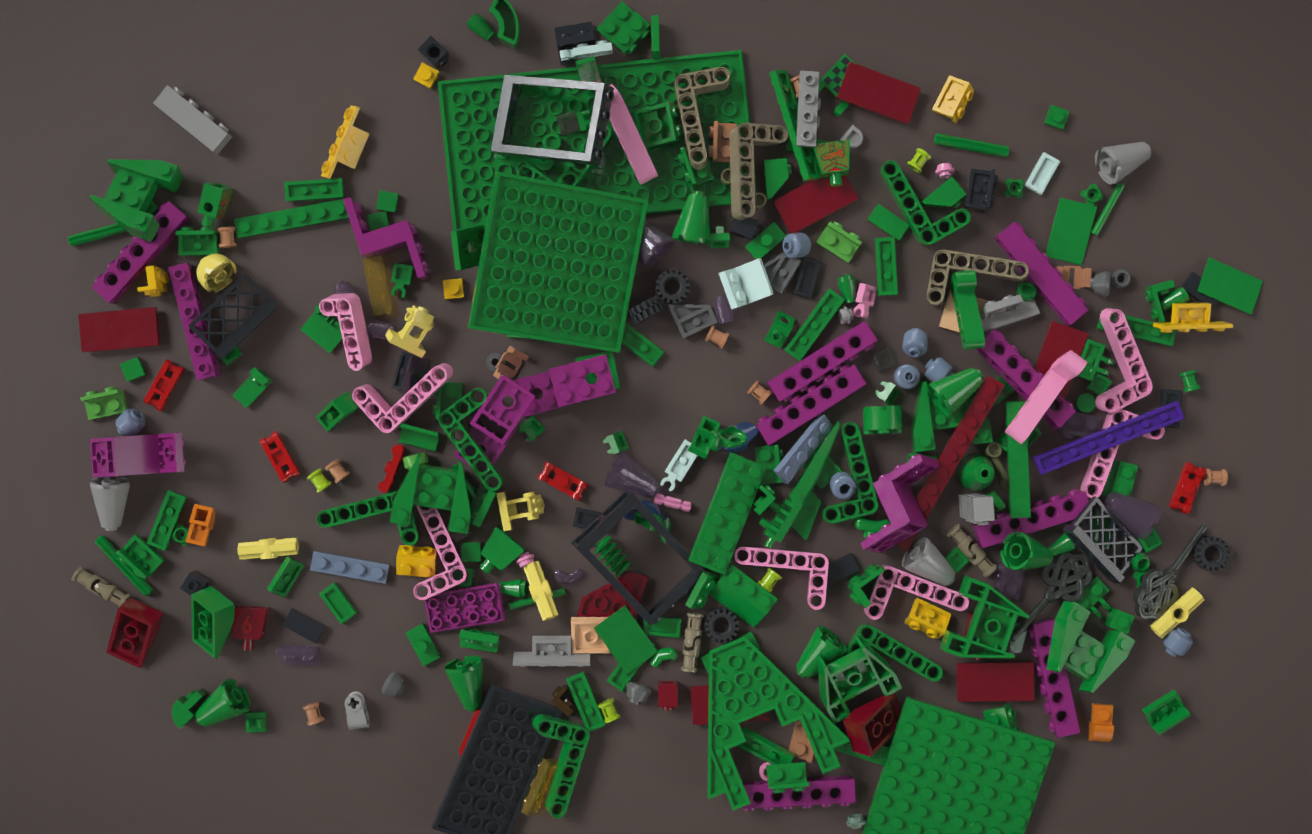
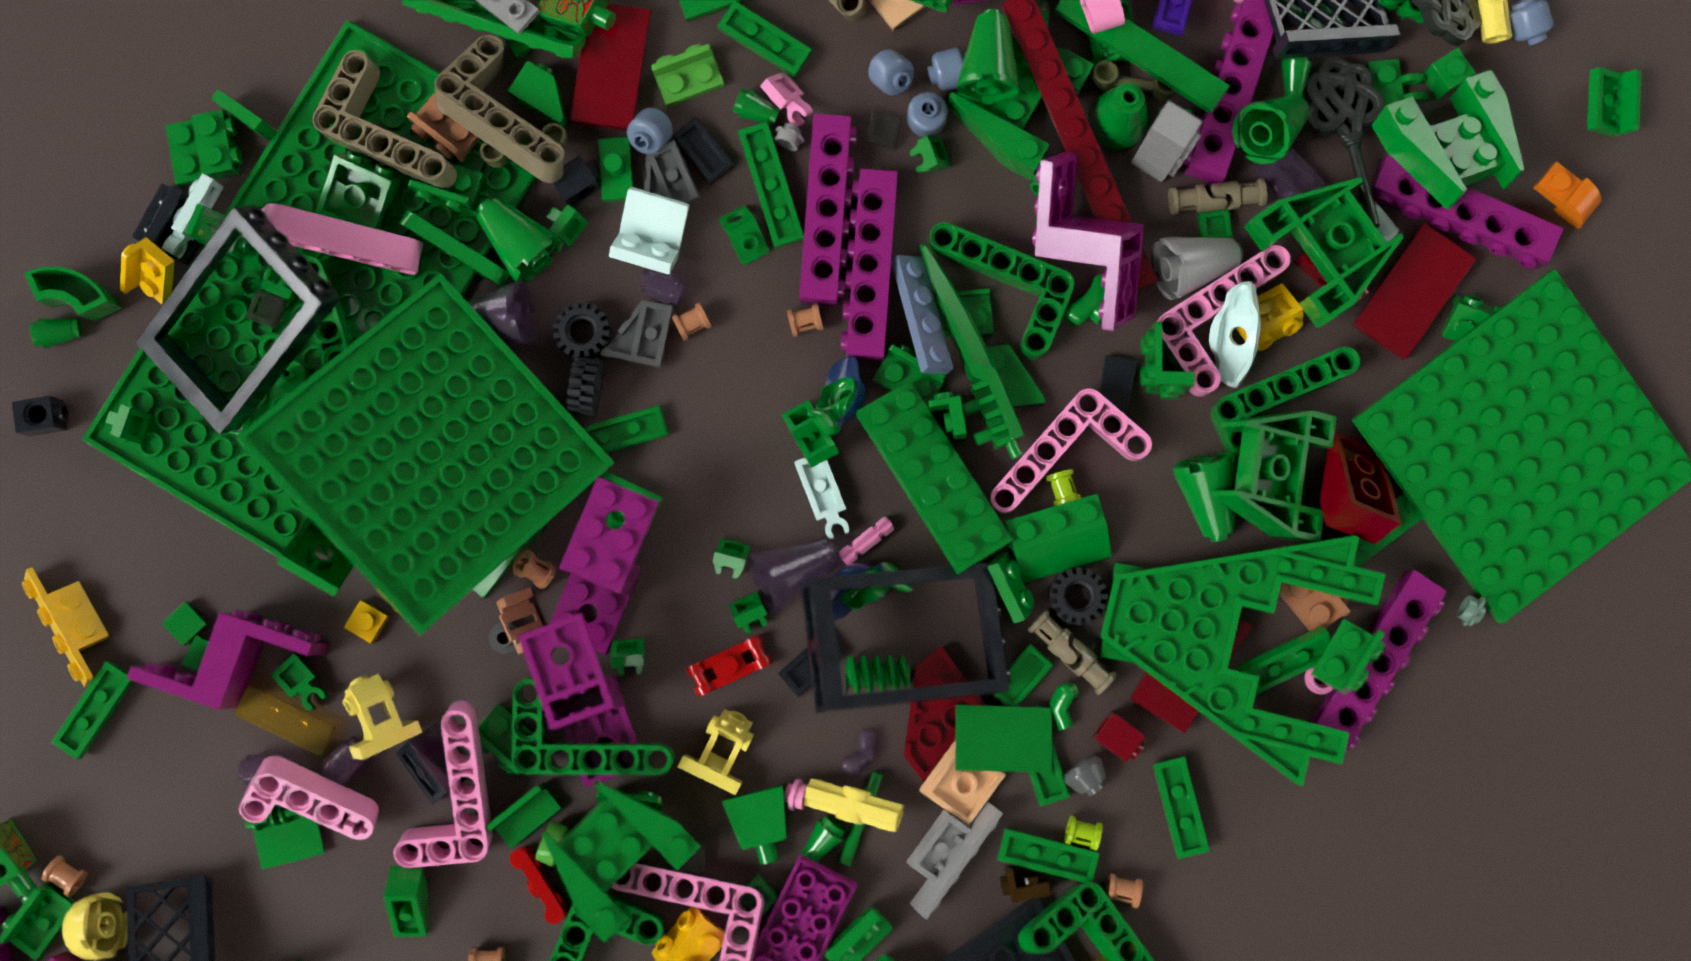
camera: 55 degrees left, 5 degrees down
(290, 218) = (107, 771): green plate -> none
(426, 75) = (63, 449): yellow plate -> none
(463, 100) = (128, 423): none -> green tile
(471, 551) = (732, 861): green tile -> none
(481, 504) = (679, 799): green bracket -> none
(539, 355) = (534, 569): none -> nougat bush
(544, 51) = (149, 268): none -> yellow bracket
(596, 470) = (748, 610): none -> green tile
(596, 749) = (1124, 890): none -> nougat bush
(656, 748) = (1180, 807): none -> green plate
(666, 193) = (454, 248): none -> green beam
(843, 485) = (1008, 299): sand blue head -> none
(882, 419) = (959, 185): green brick -> none
(919, 602) = (1242, 311): none -> light aqua piece

